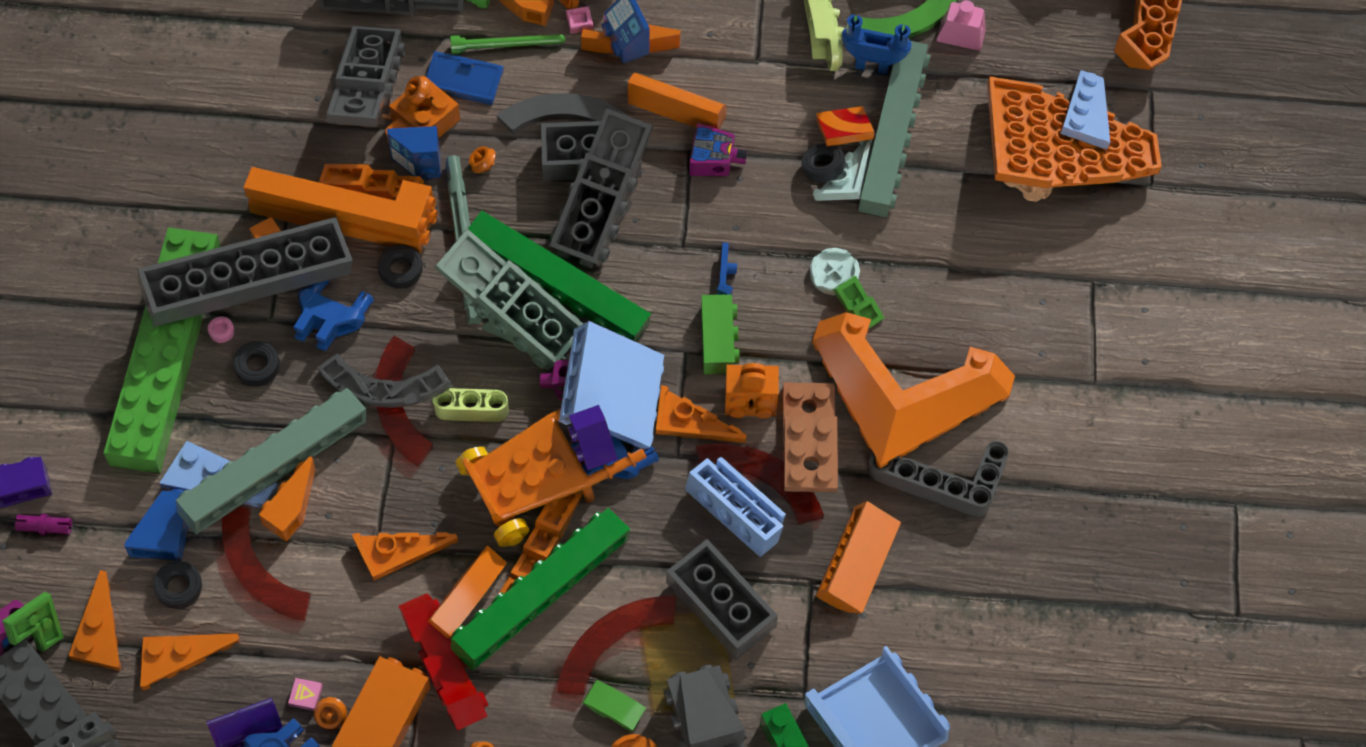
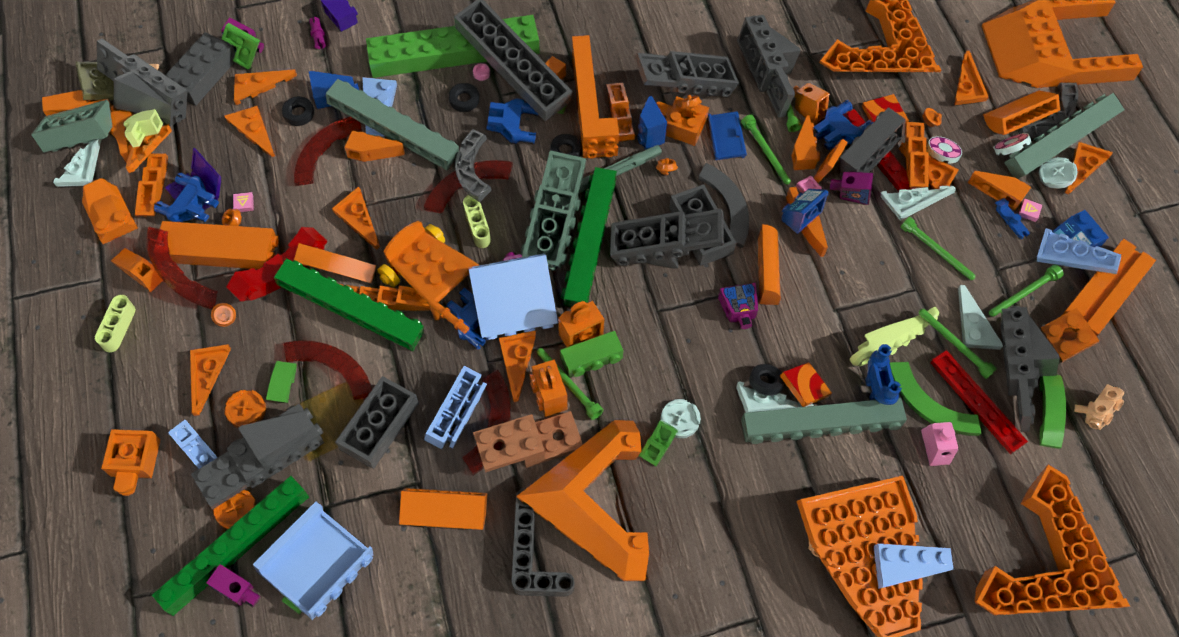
camera: 70 degrees right, 0 degrees up
(592, 436) = (458, 289): dark purple brick -> none
(680, 329) = (580, 323): none -> orange brick
(726, 268) = (647, 342): blue piece -> none
(790, 357) = (593, 409): none -> bright green piece

